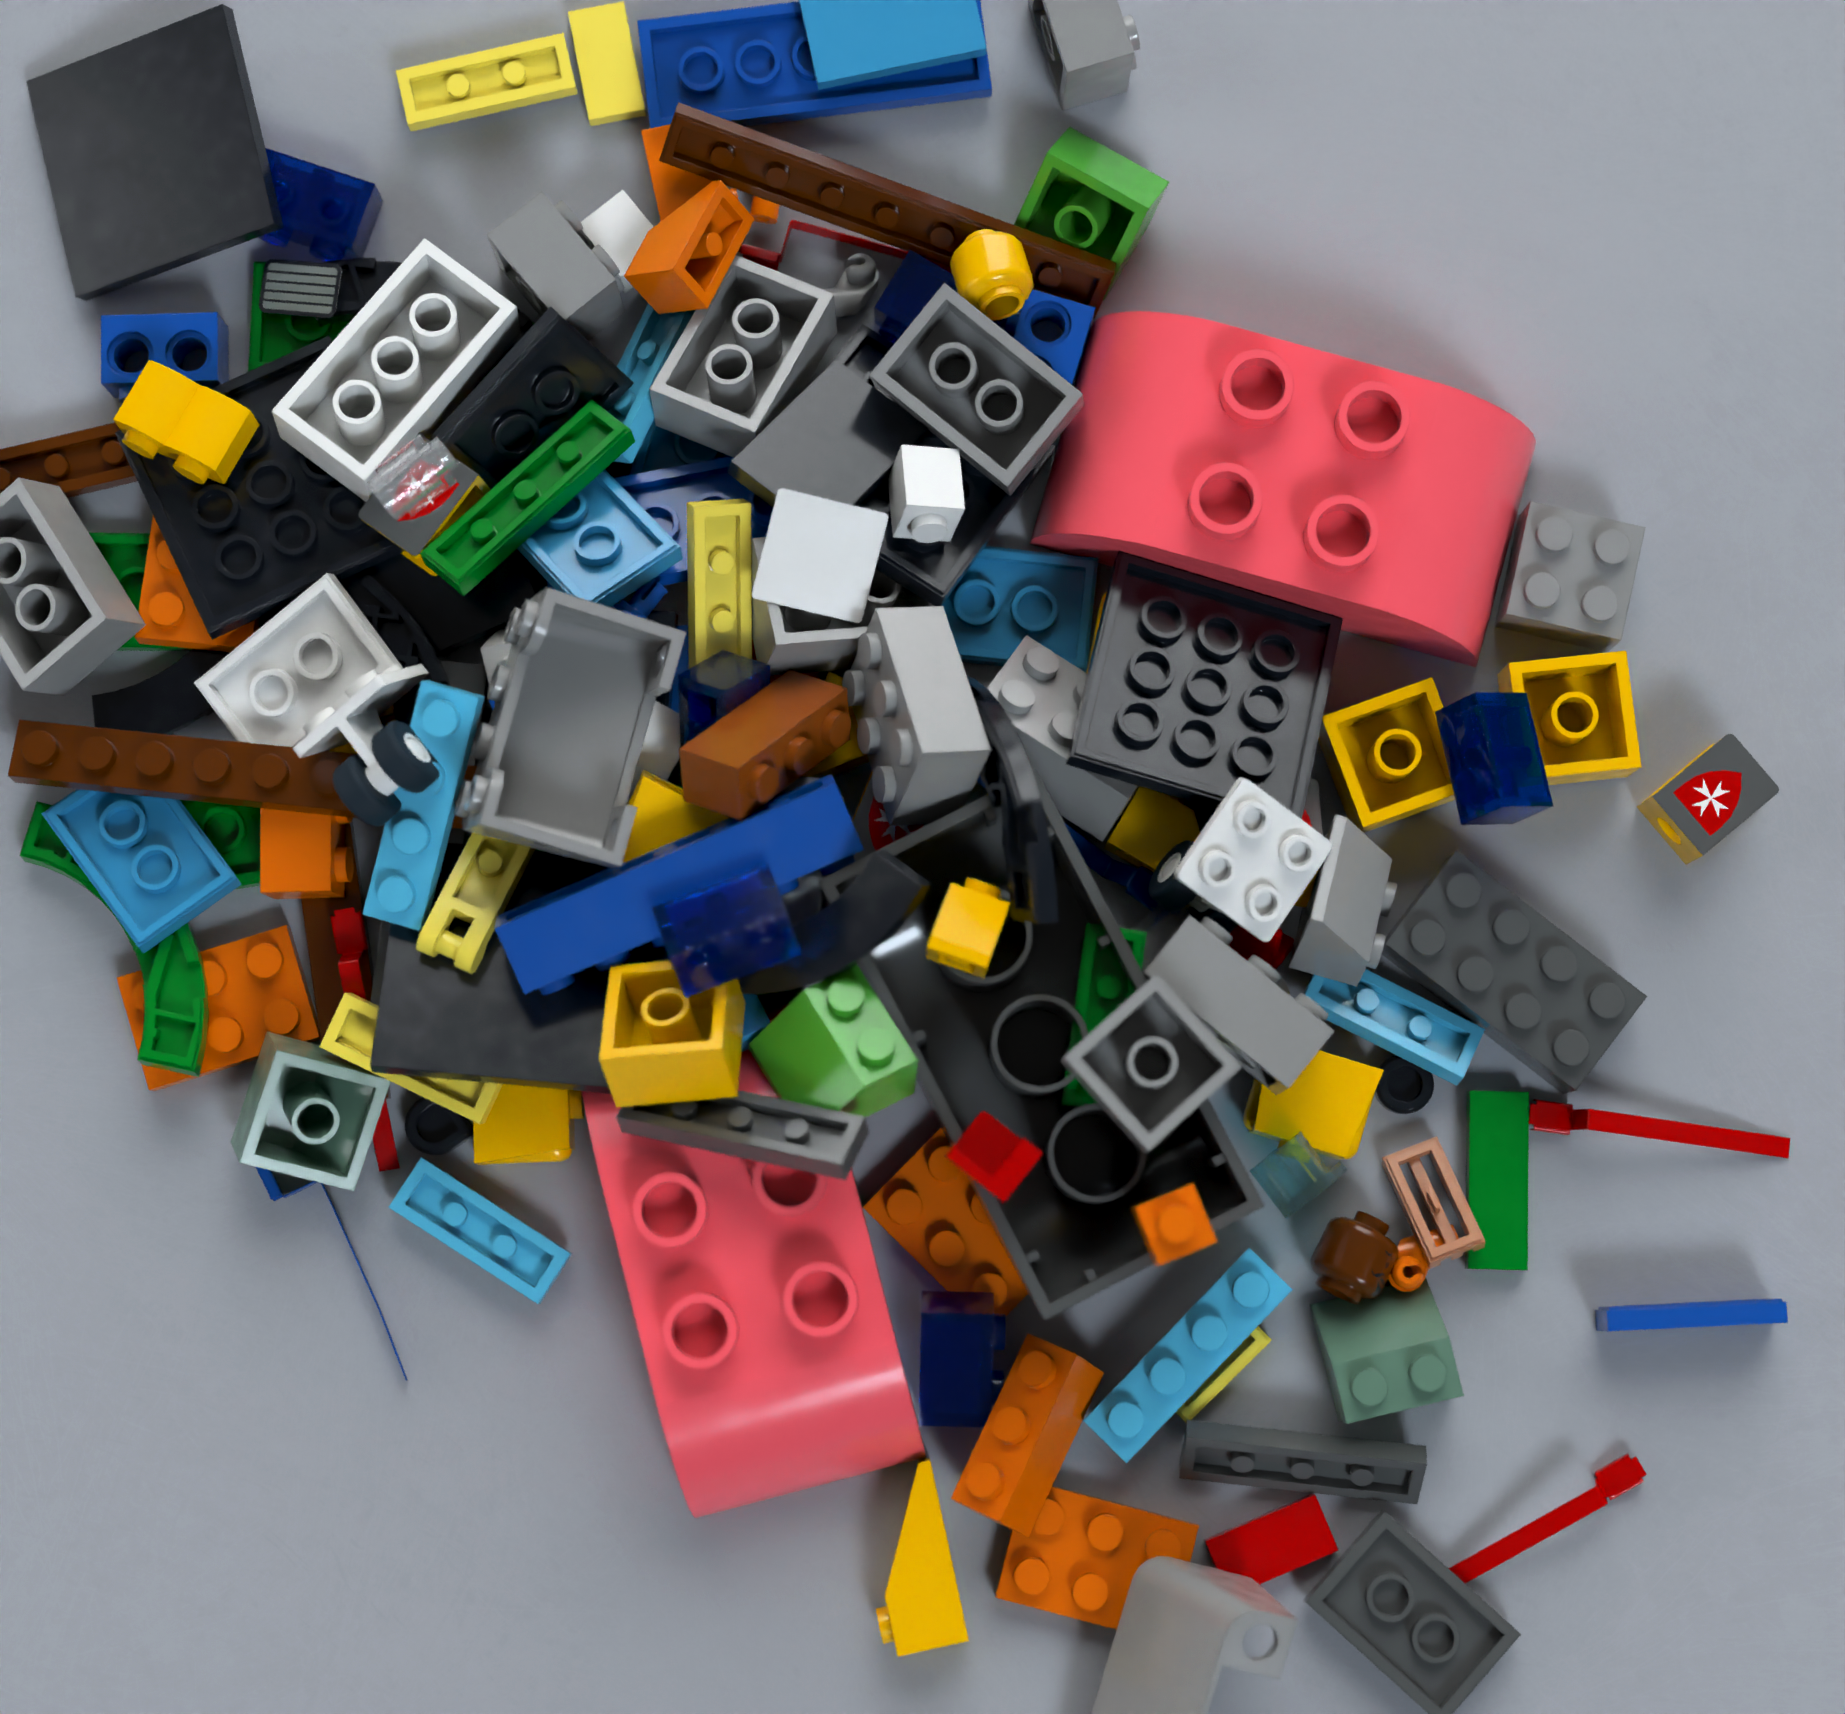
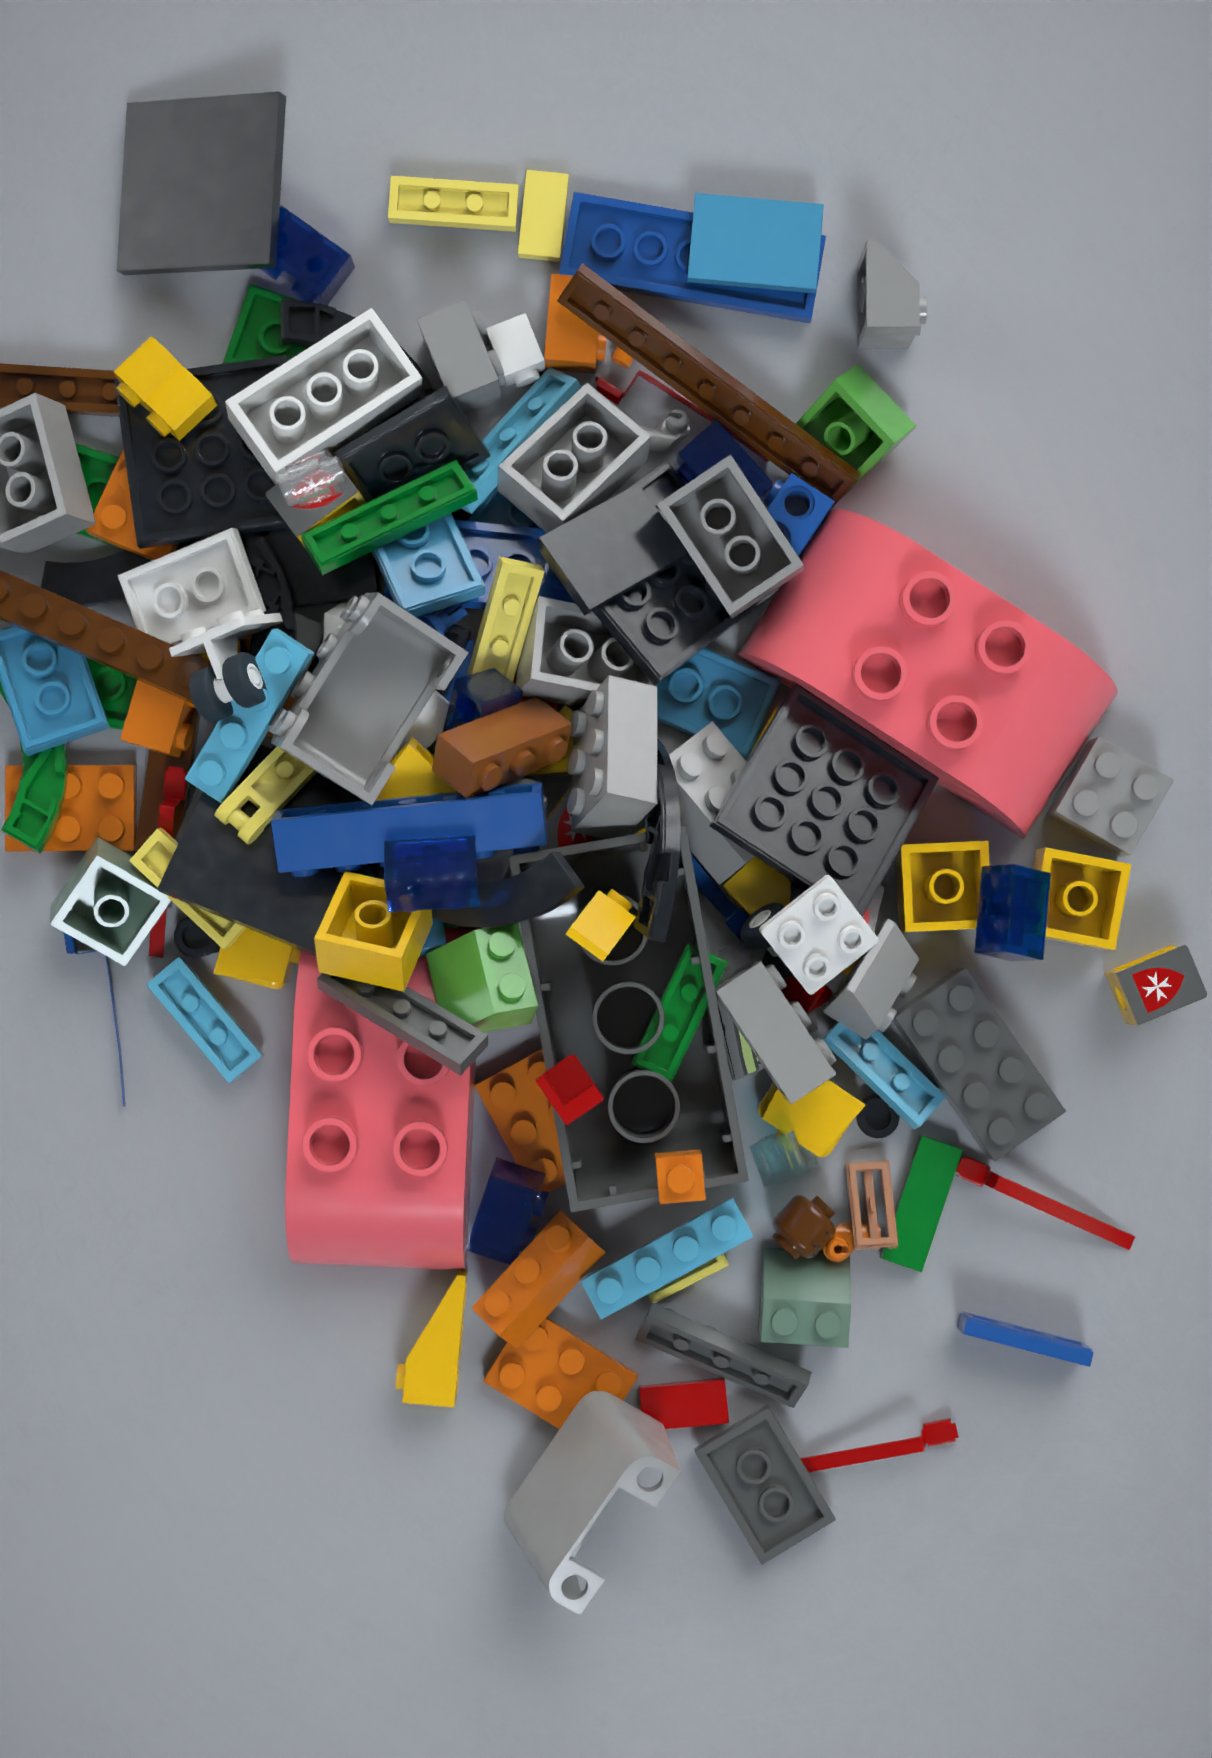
camera: 20 degrees right, 5 degrees up
(168, 341) = (171, 325): blue brick -> none
(300, 288) = (276, 314): sticker -> none
(690, 251) = (559, 373): orange slope -> none
(819, 555) = (581, 624): white sticker -> none
(926, 493) = (670, 601): white brick -> none
(992, 273) = (768, 456): yellow head -> none
(1150, 1063) = (699, 1060): light grey brick -> none

